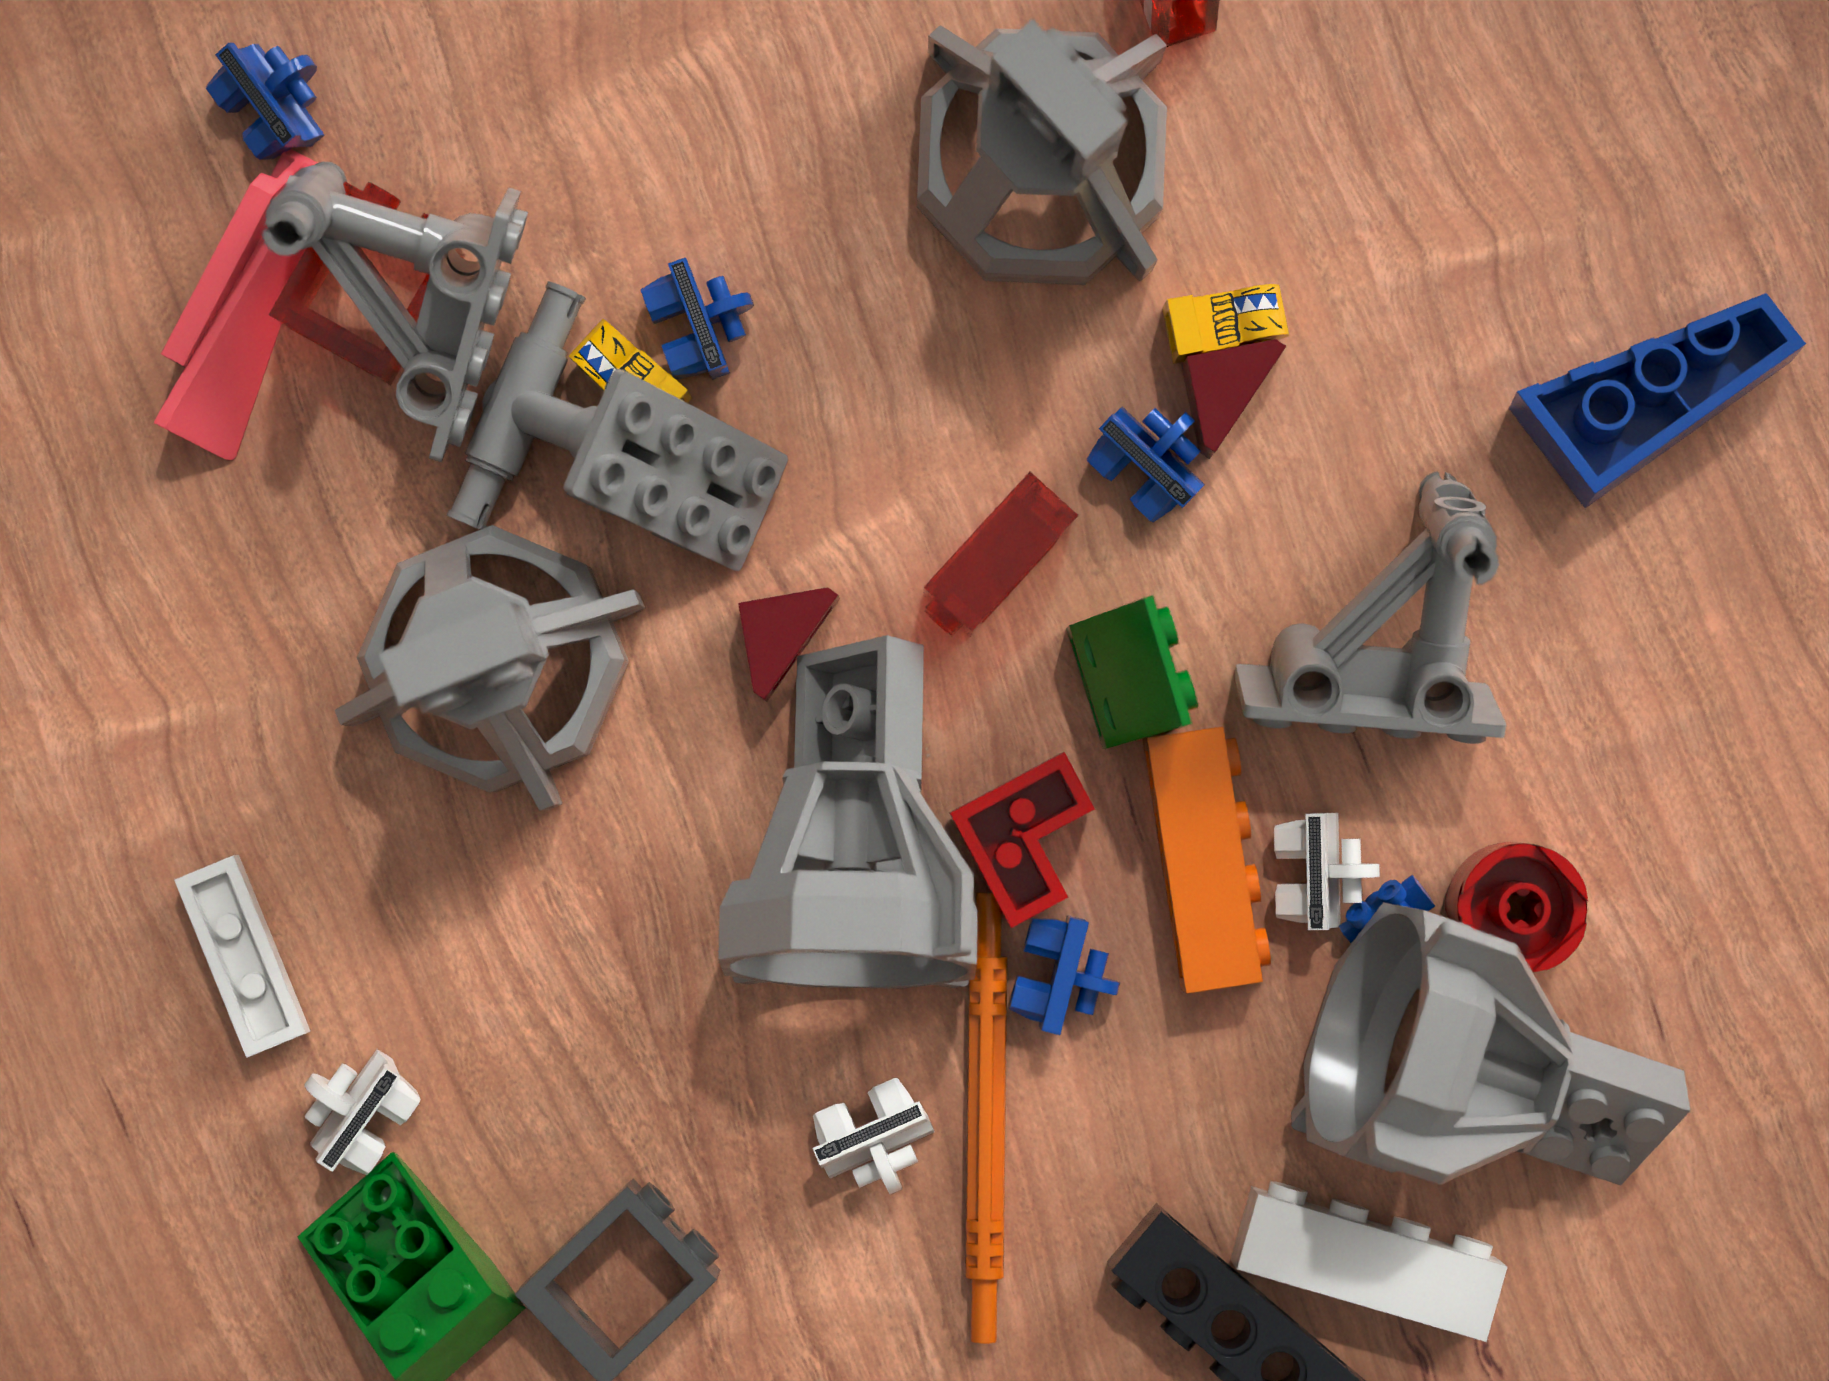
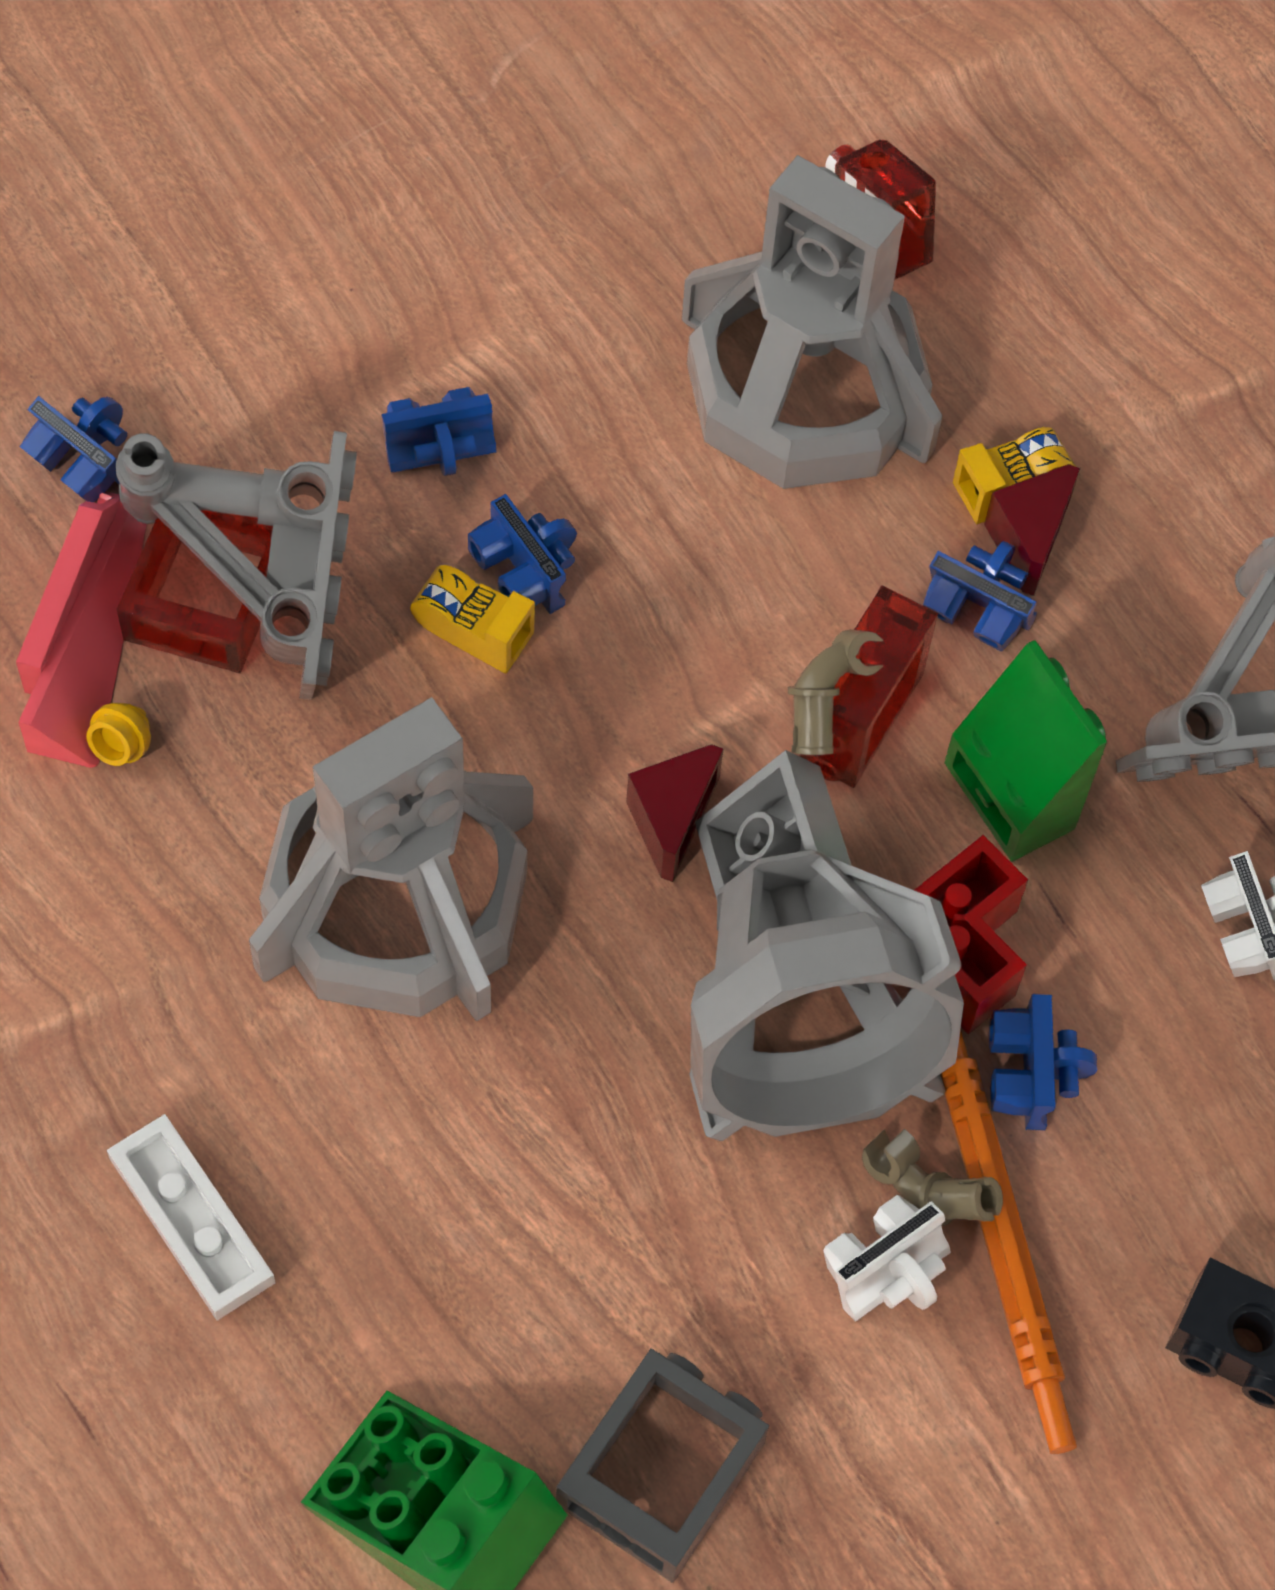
camera: 15 degrees left, 25 degrees down
(258, 437) = (119, 733): none -> yellow plate
(343, 1134) = (359, 1320): white hips -> none
(633, 453) = (500, 642): light grey plate -> none
(639, 158) = (439, 431): none -> blue hips
(931, 585) = (817, 688): none -> dark tan piece
(932, 1080) = (957, 1198): none -> dark tan piece
(1204, 859) = (1143, 929): orange brick -> none

